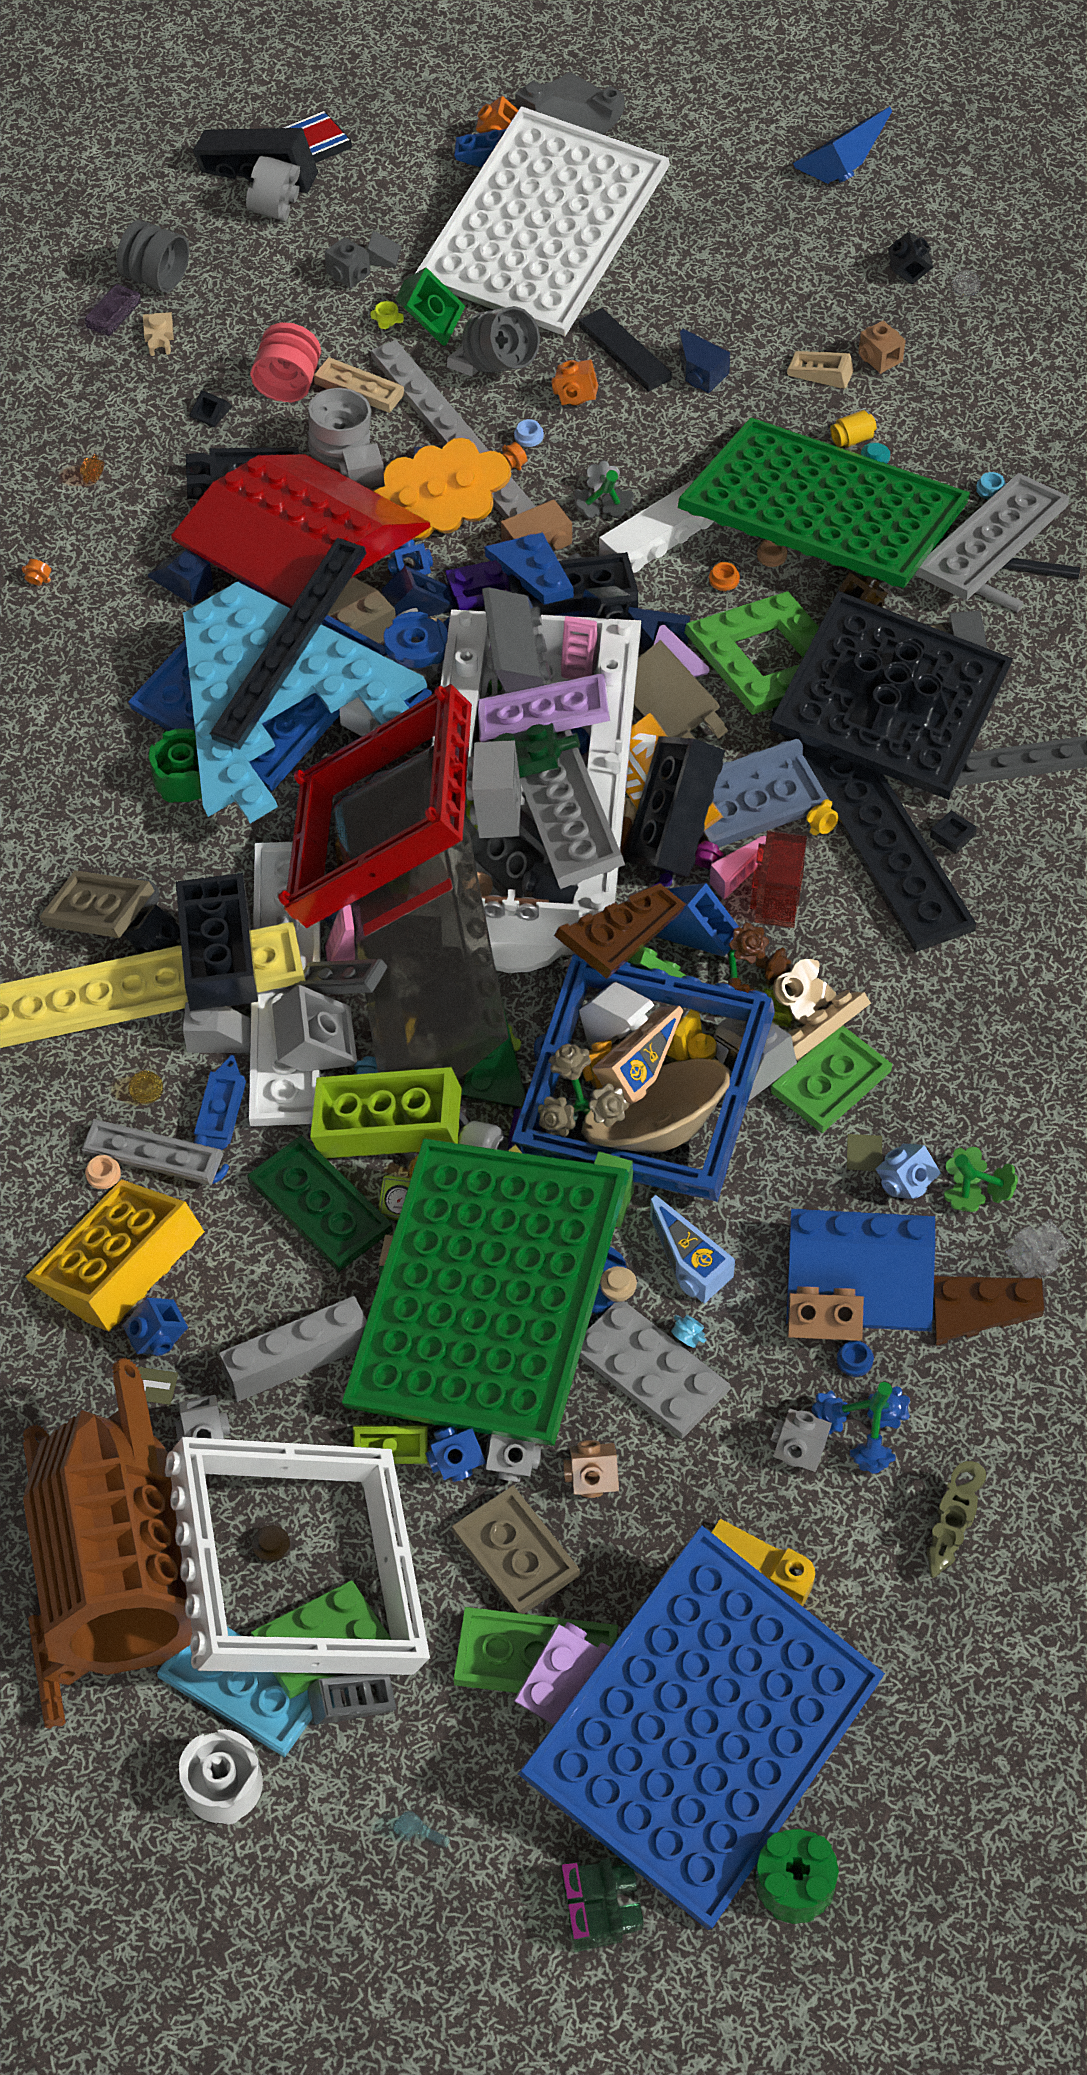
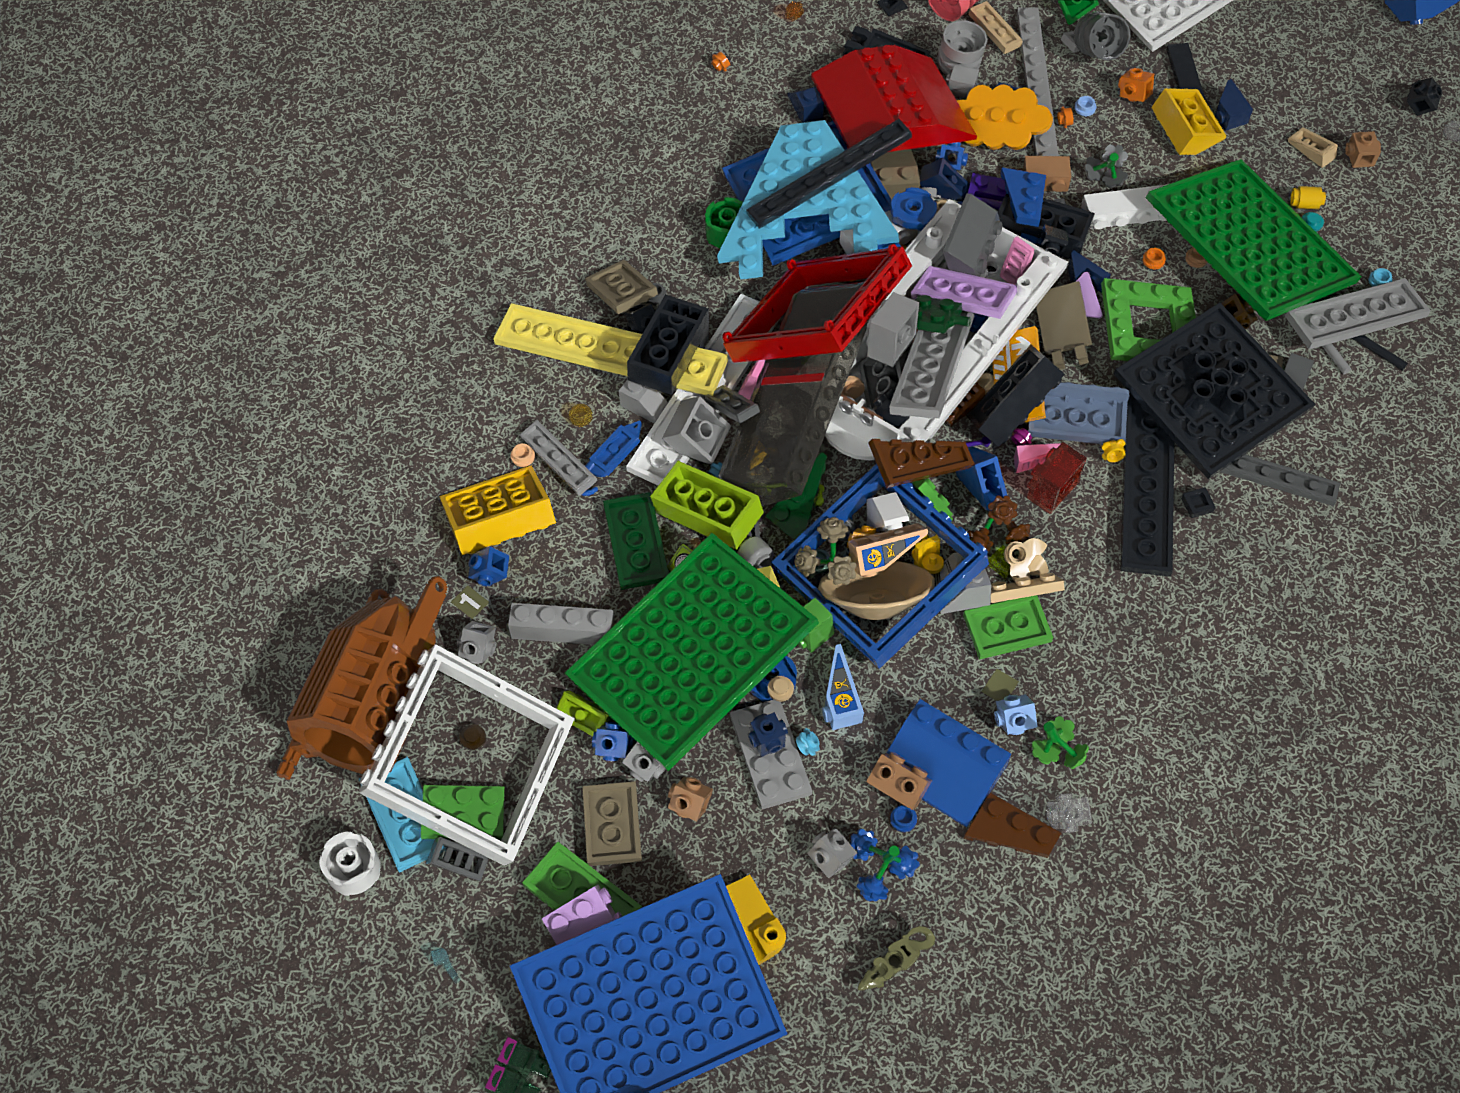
camera: 30 degrees right, 5 degrees up
(640, 1342) = (767, 733): none -> dark blue brick
(662, 399) = (1187, 120): none -> yellow slope

